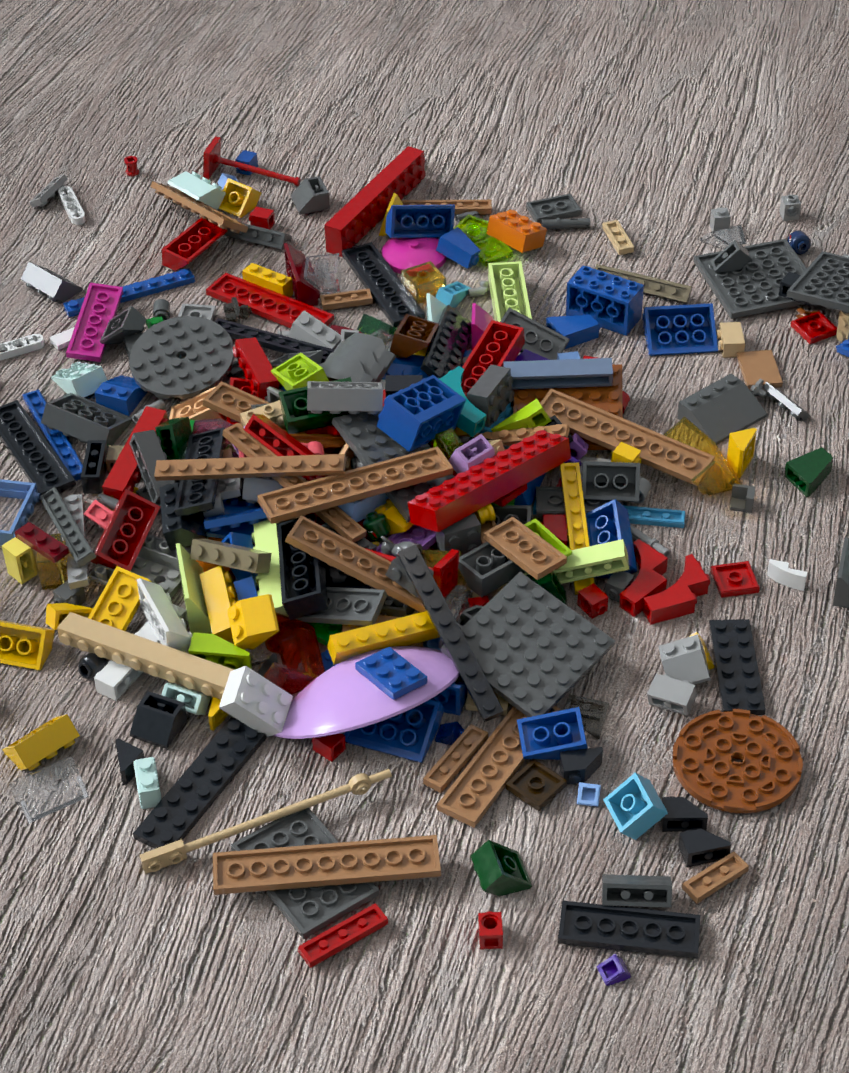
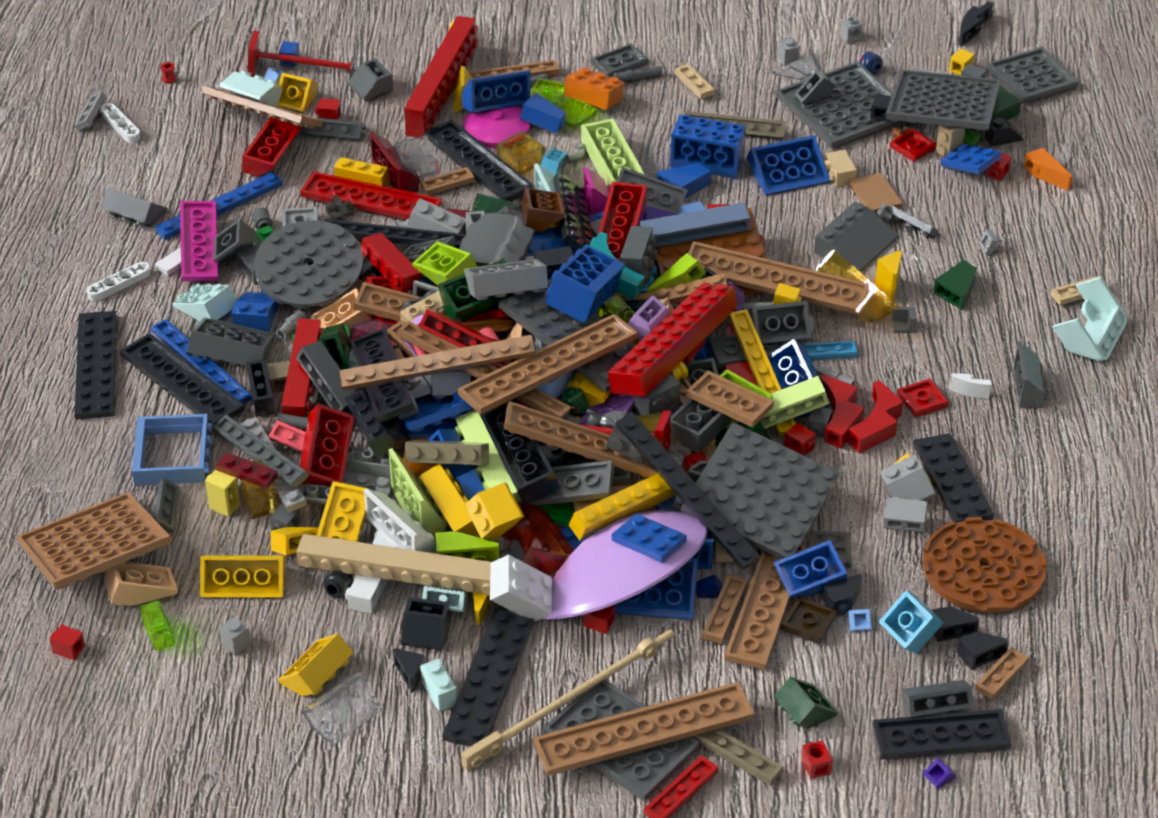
camera: 15 degrees left, 0 degrees up
(416, 911) = (741, 755): none -> dark tan plate

